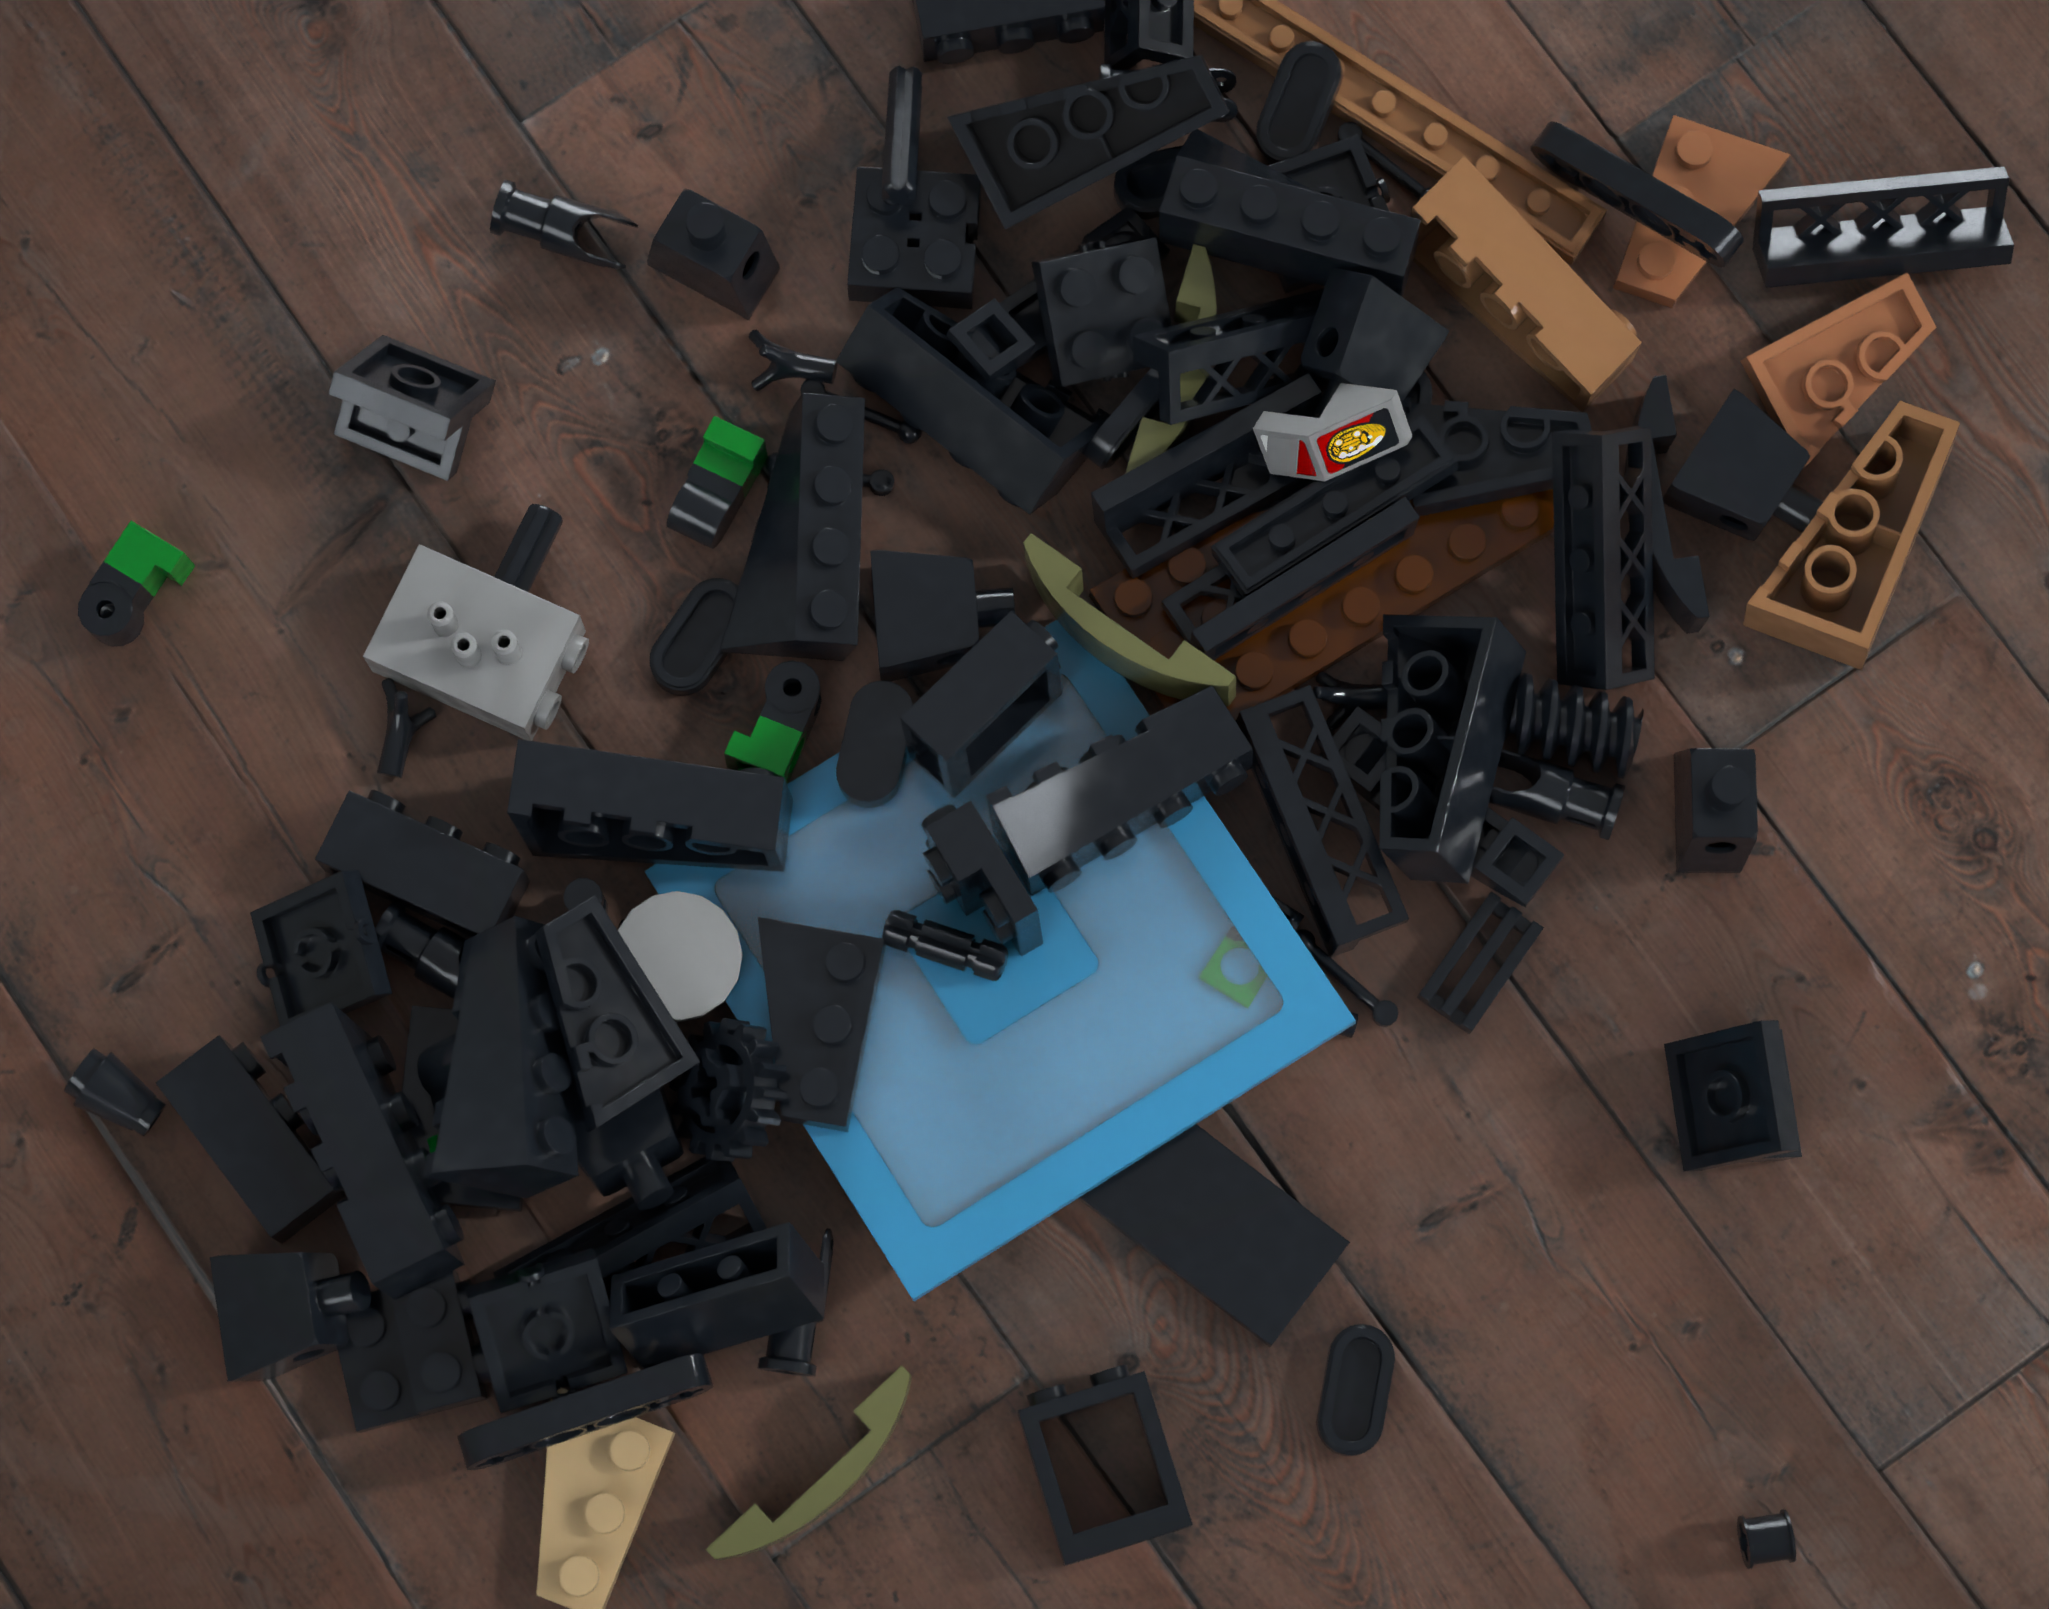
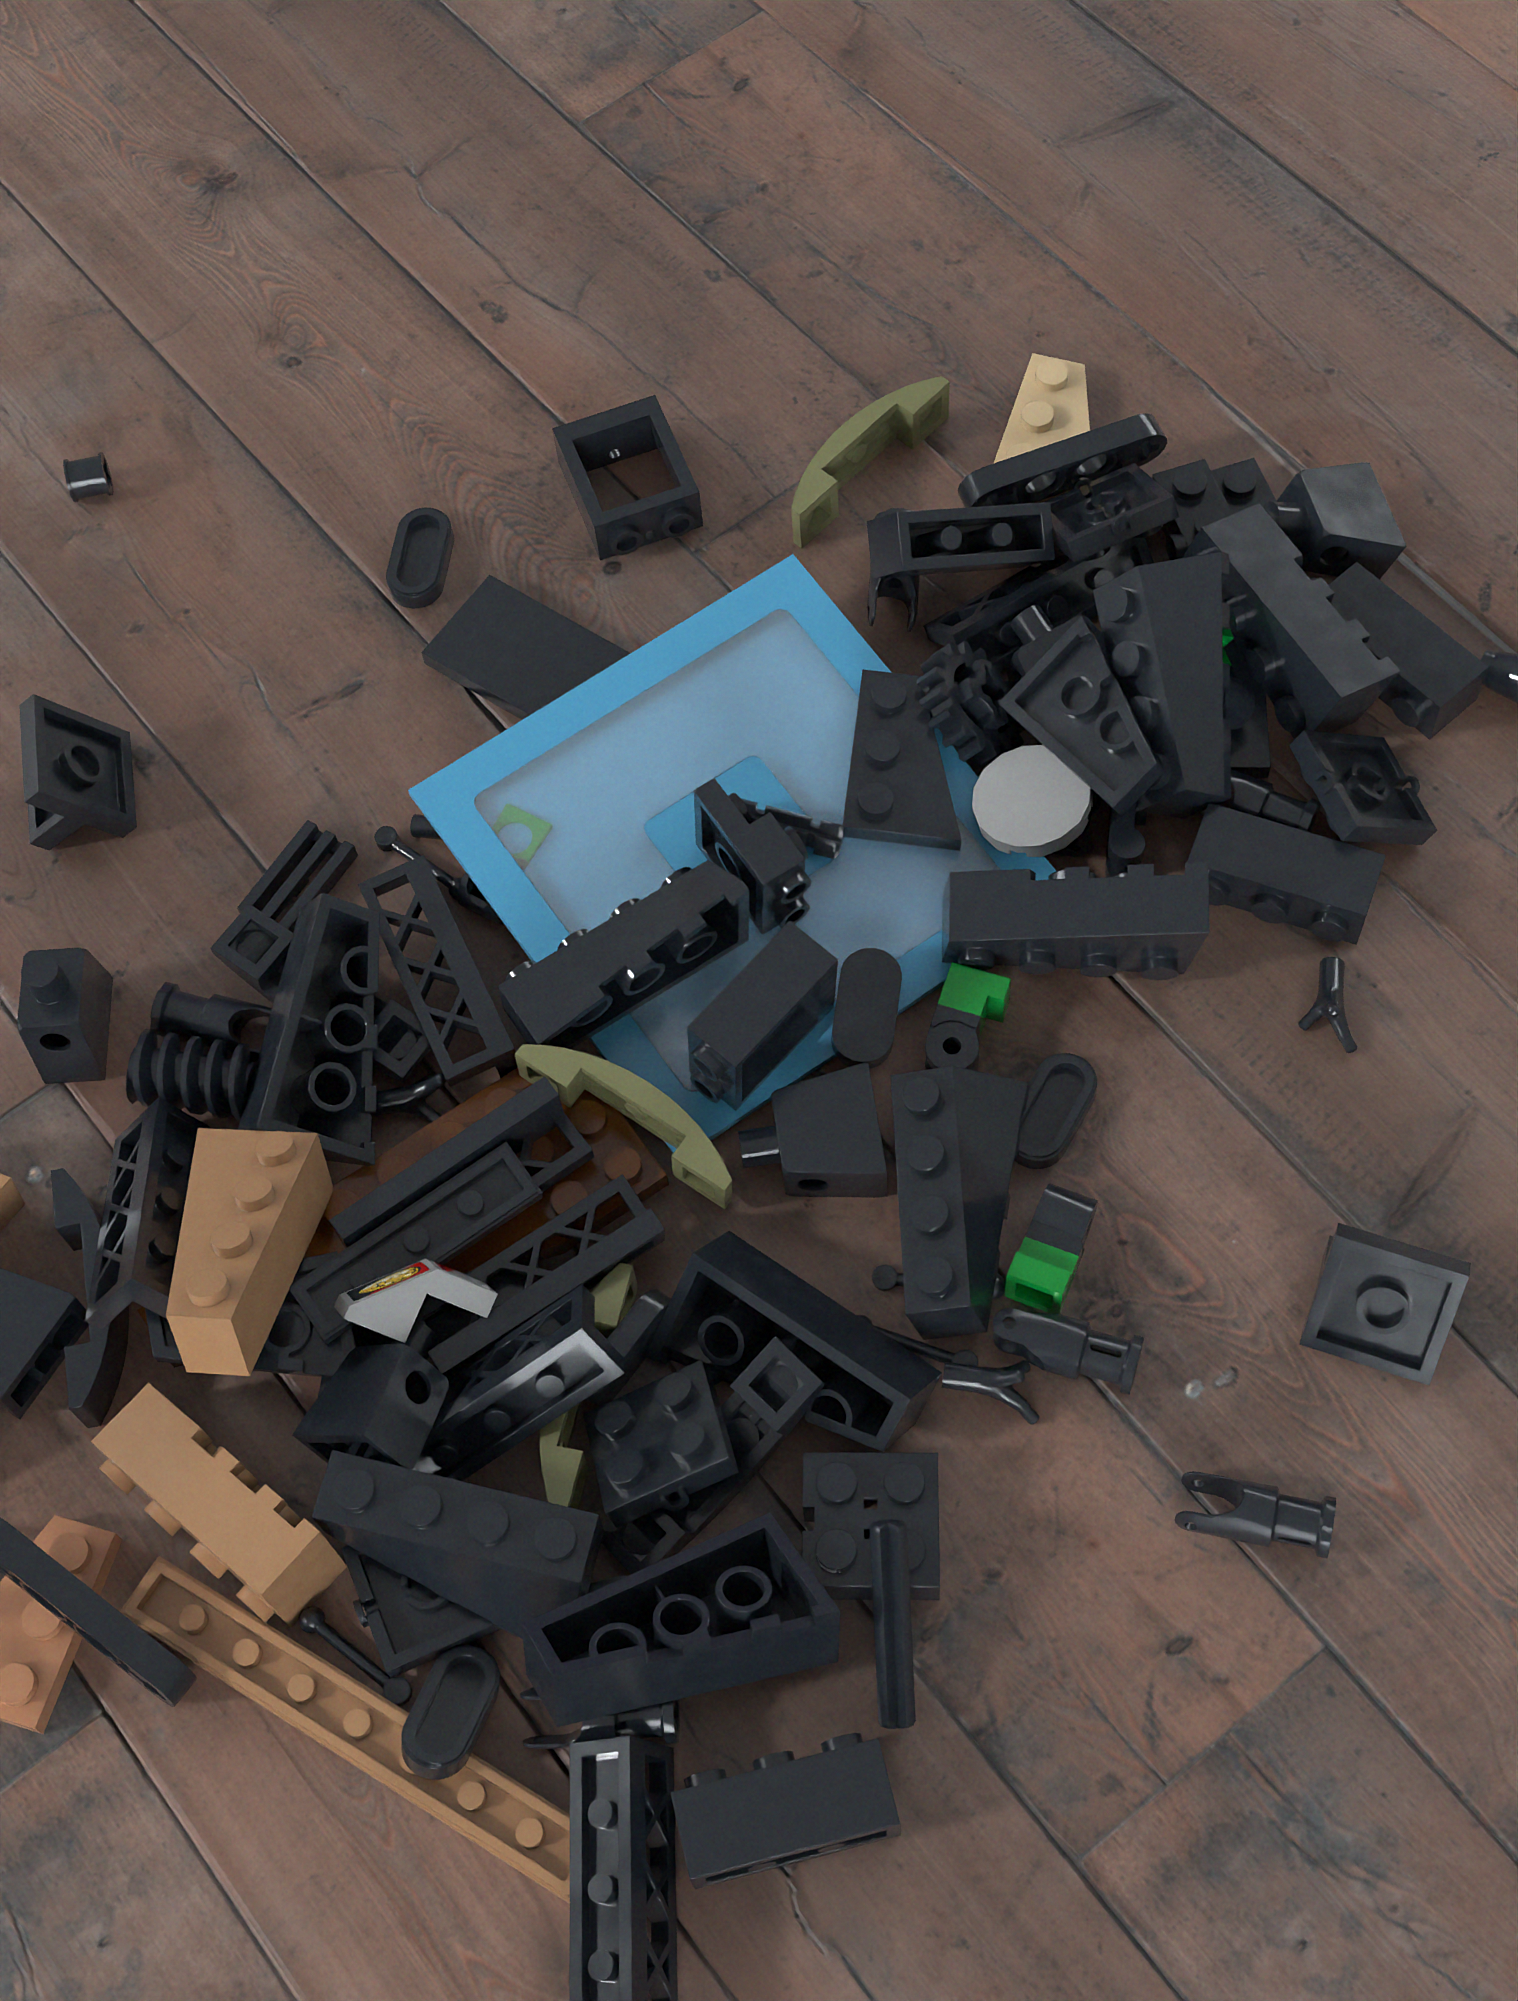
camera: 175 degrees left, 15 degrees down
(481, 636) = (1265, 1082): light grey piece -> none
(708, 252) = (1092, 1481): black torso -> none
(712, 387) = (1068, 1346): none -> black piece
(1502, 503) = (242, 1241): none -> medium nougat wedge

